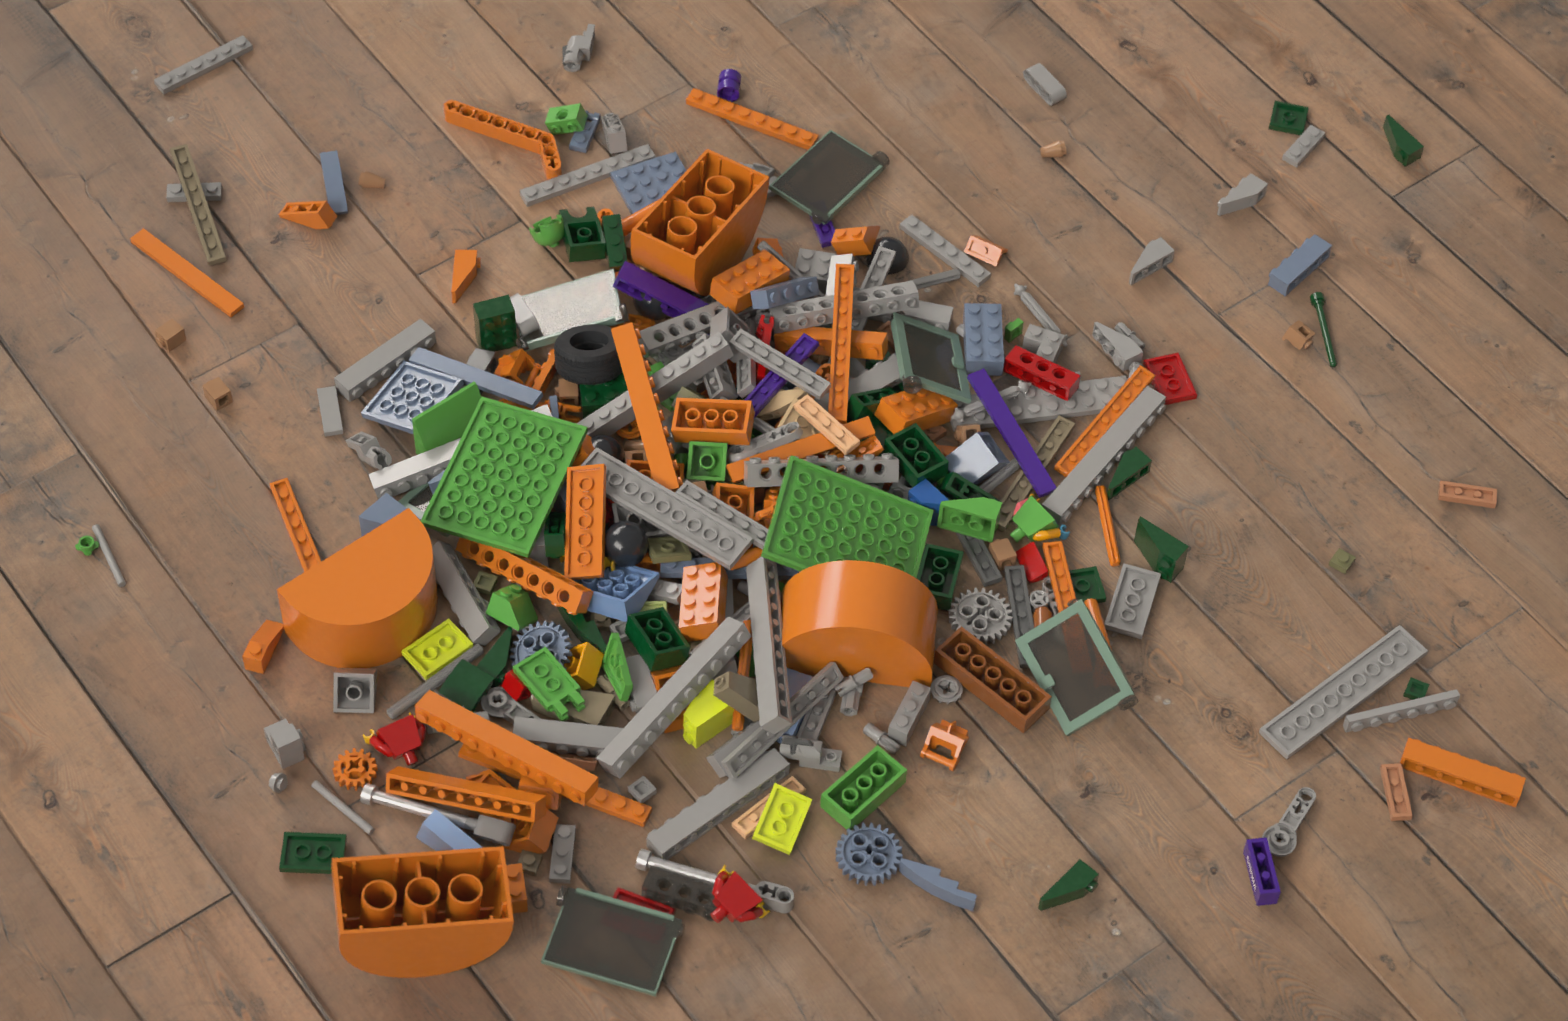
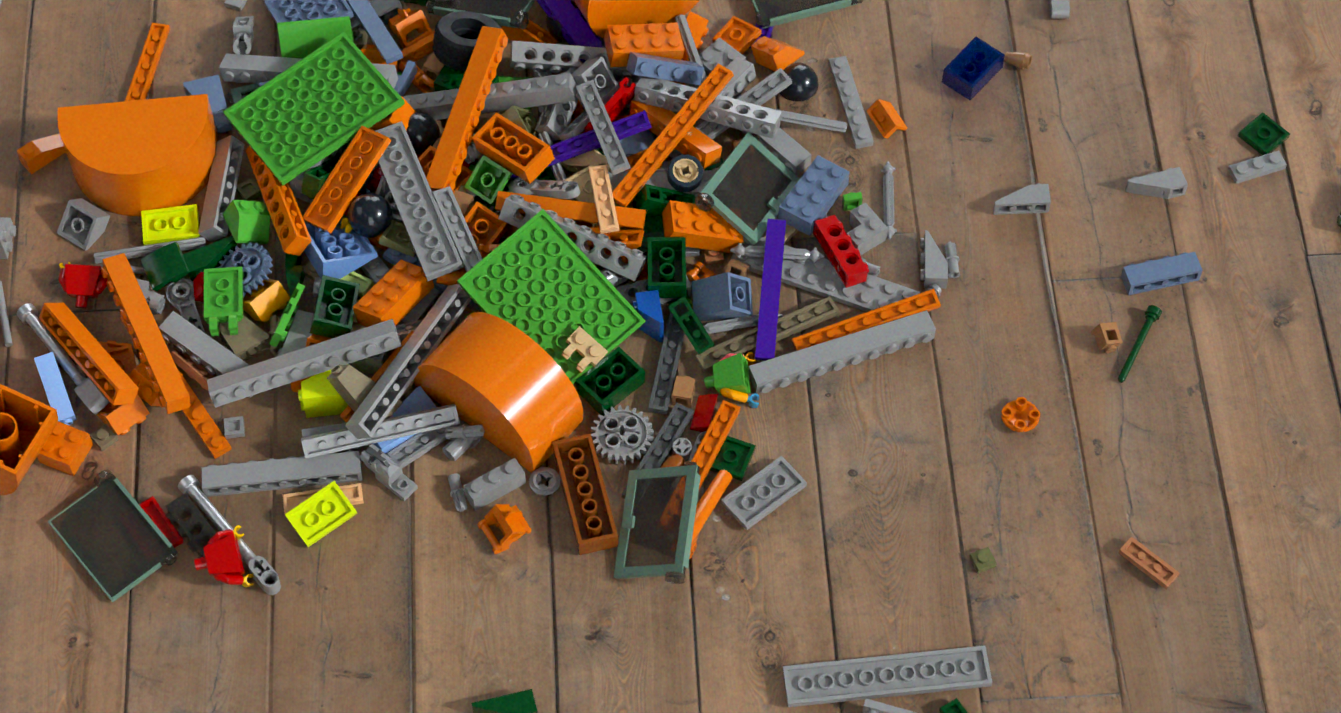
camera: 35 degrees right, 5 degrees up
(355, 769) = (33, 287): orange gear -> none
(562, 854) = (134, 444): light grey plate -> none
(807, 237) = (738, 34): none -> orange tile
(863, 788) = (405, 526): bright green brick -> none
(866, 371) = (685, 182): none -> wheel
(867, 869) = (355, 596): sand blue gear -> none
(905, 556) = (586, 347): none -> tan plate
(943, 888) = (401, 637): sand blue slope -> none
(971, 517) = (675, 344): bright green slope -> none
(1026, 173) = (973, 68): none -> clear blue brick
(1107, 525) = (797, 415): orange axle -> none
(1131, 468) = (852, 377): dark green slope -> none
(1160, 549) = (822, 468): dark green slope -> none
(1171, 378) = (959, 315): red tile -> none
(1281, 432) = (1020, 415): none -> orange dish

